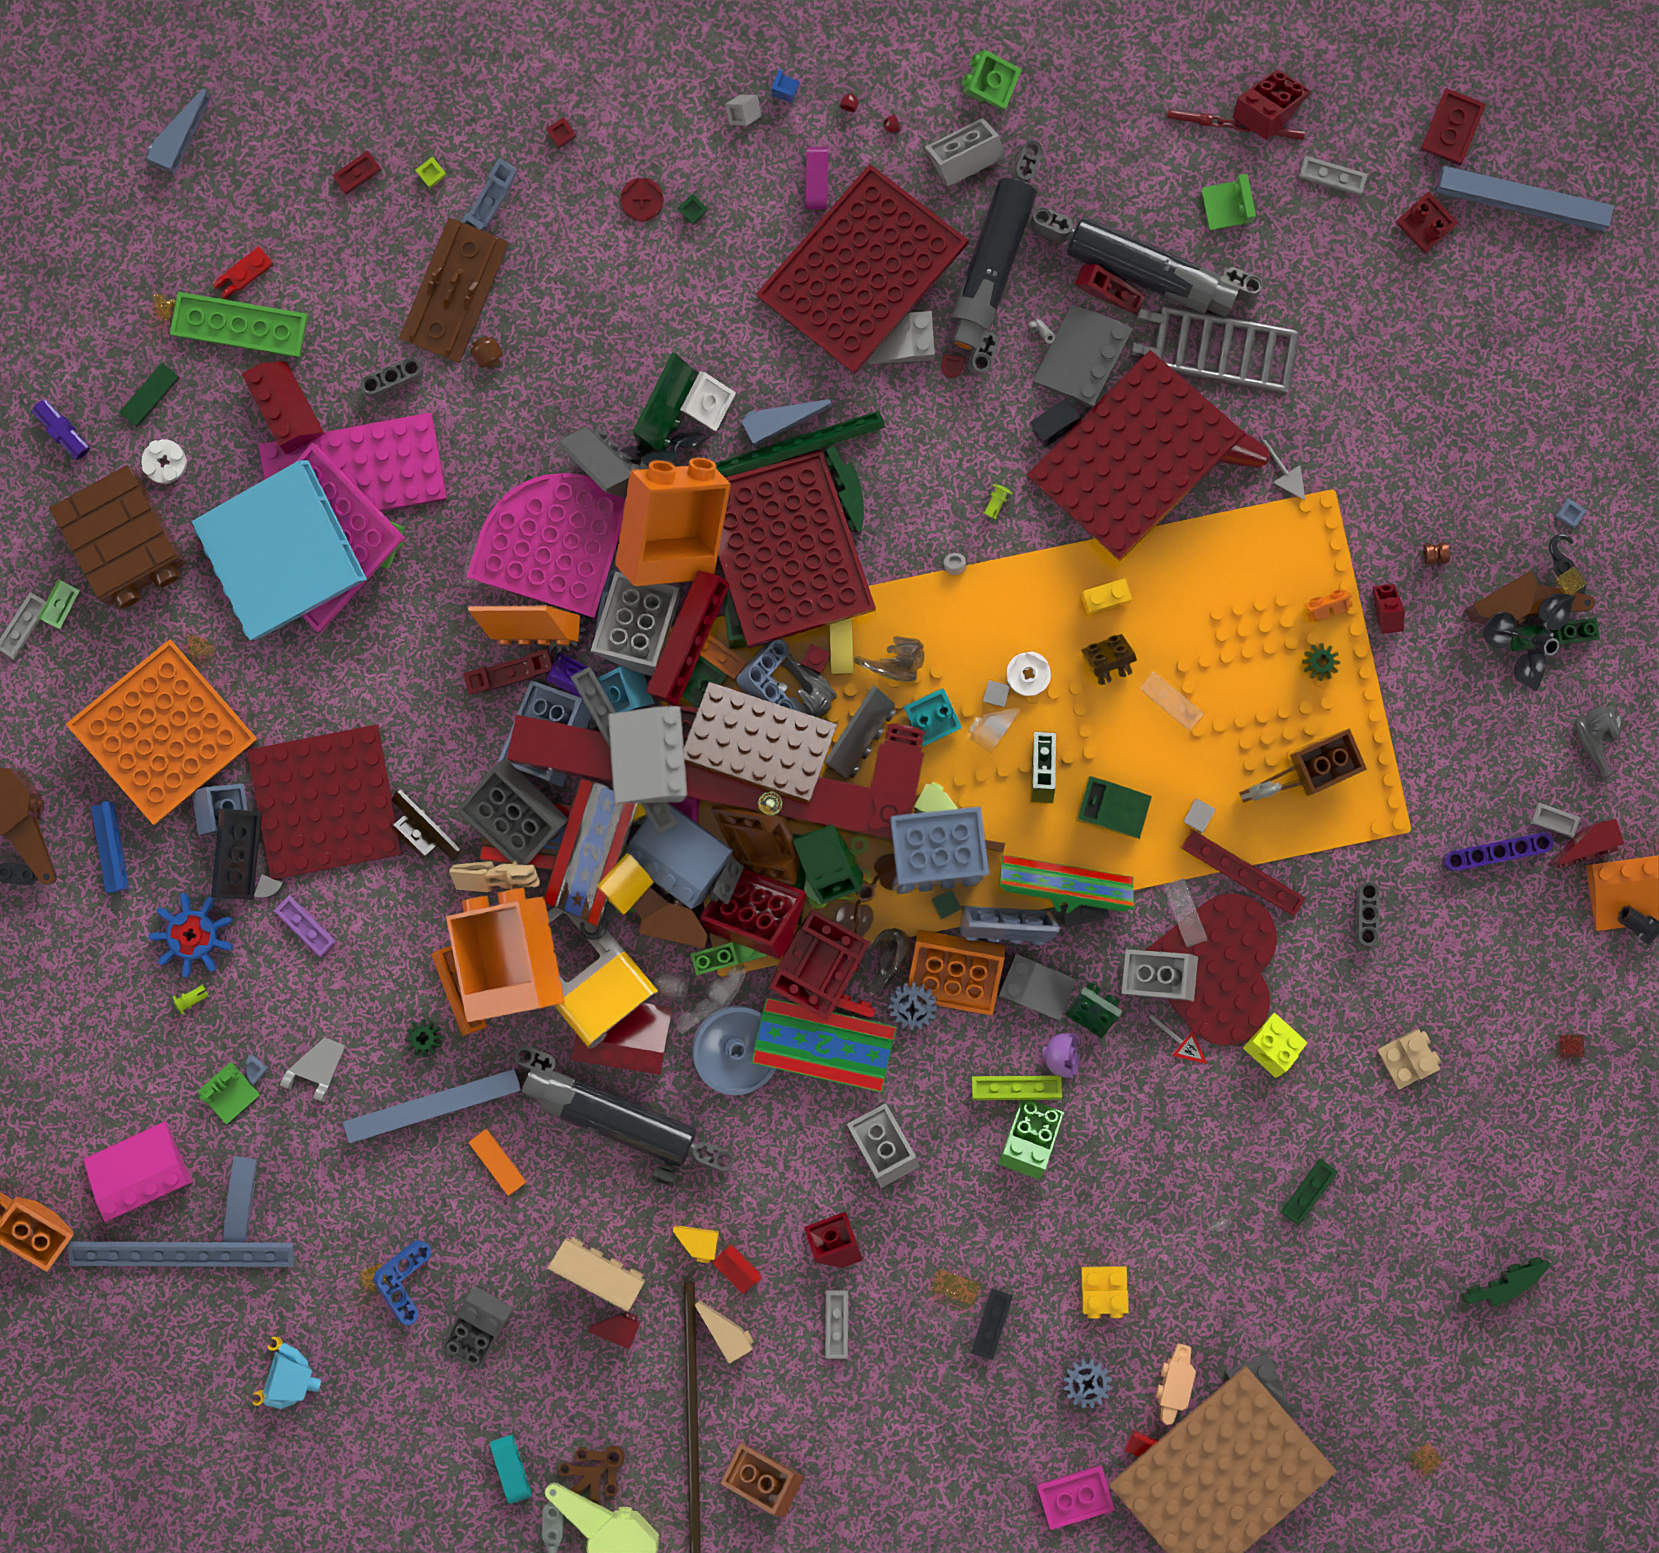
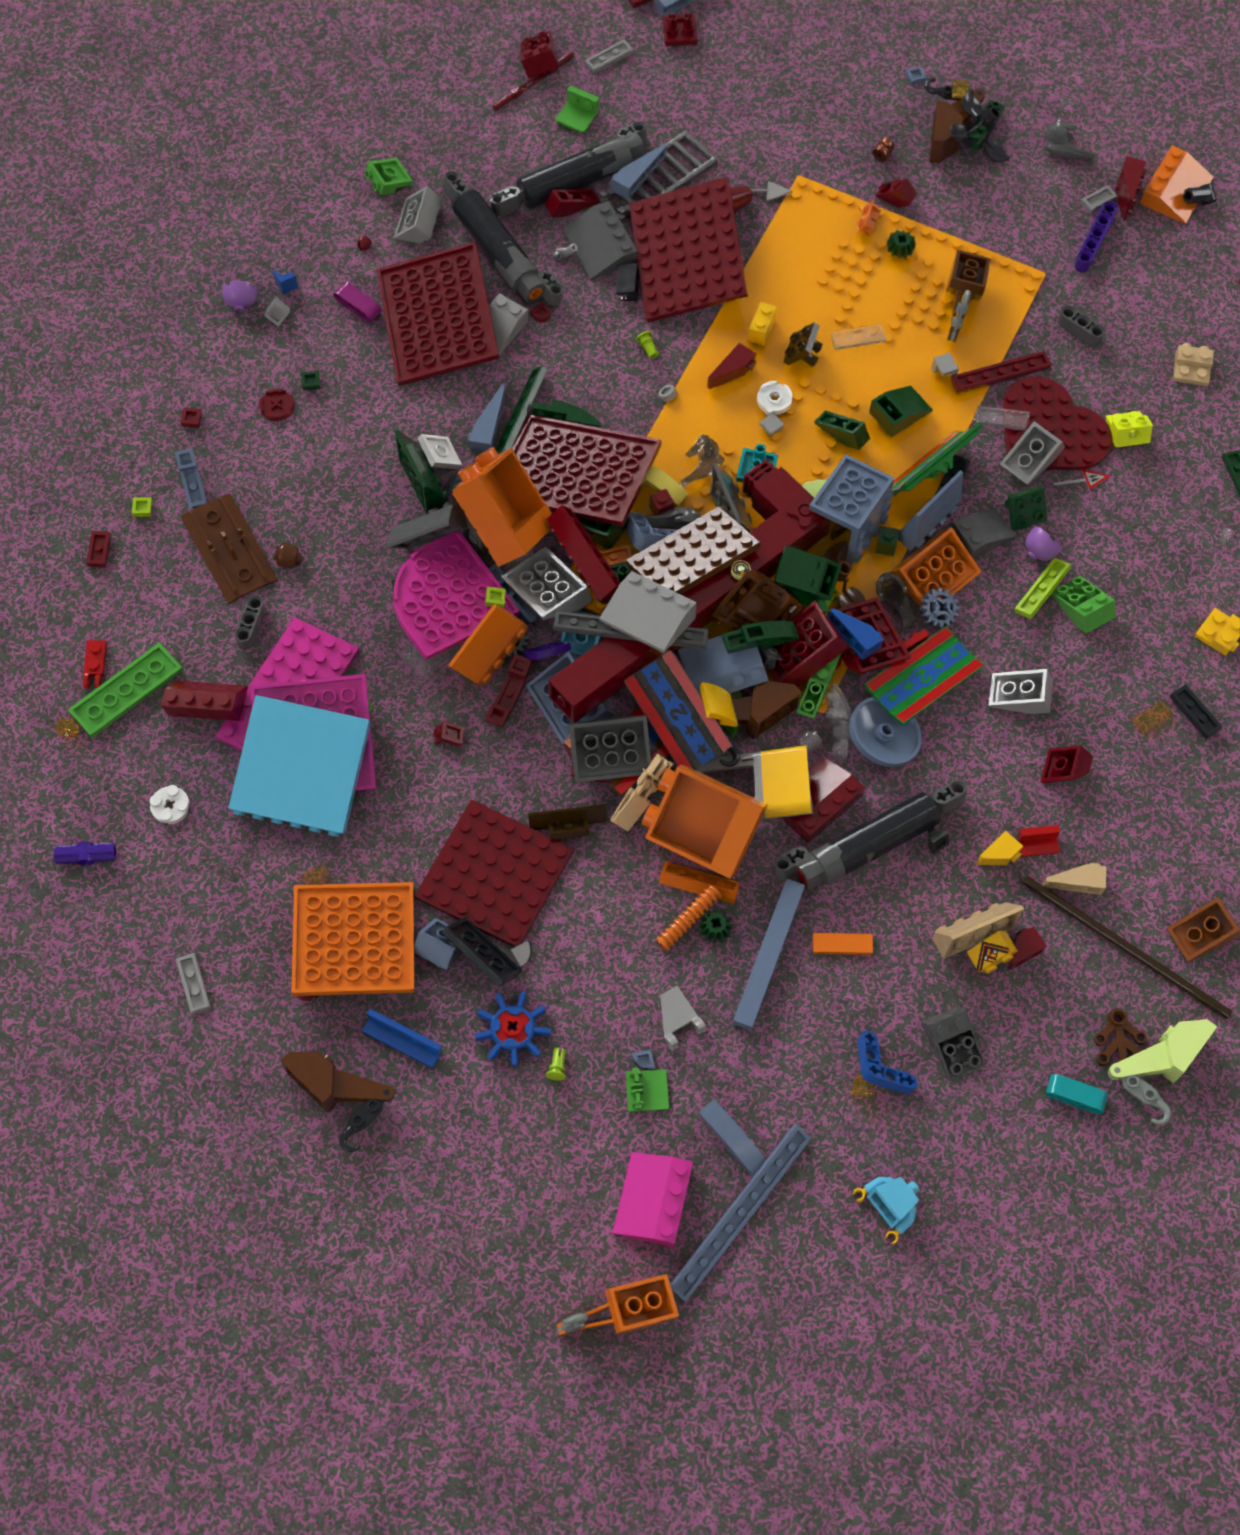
camera: 55 degrees left, 20 degrees down
(59, 604) = (201, 944): bright green plate -> none
(119, 538) = (195, 865): reddish brown brick -> none
(149, 394) = (116, 781): dark green tile -> none
(305, 926) = (570, 950): medium lavender tile -> none
(412, 1008) = (688, 917): none -> orange piece
(424, 652) = (448, 733): none -> dark red bracket
(583, 586) = (495, 596): none -> lime plate
(585, 1305) = (992, 952): none -> yellow brick
(724, 870) = (760, 634): none -> dark green slope
(728, 60) = (239, 295): none -> medium lavender cylinder
(803, 960) = (857, 634): none -> blue slope
(836, 1324) = (1125, 808): light grey tile -> none
(849, 103) = (329, 256): dark red hinge -> none
(991, 728) = (796, 431): clear slope -> none
(1039, 608) = (733, 366): none -> dark red slope
(1185, 327) = (634, 174): none -> sand blue slope

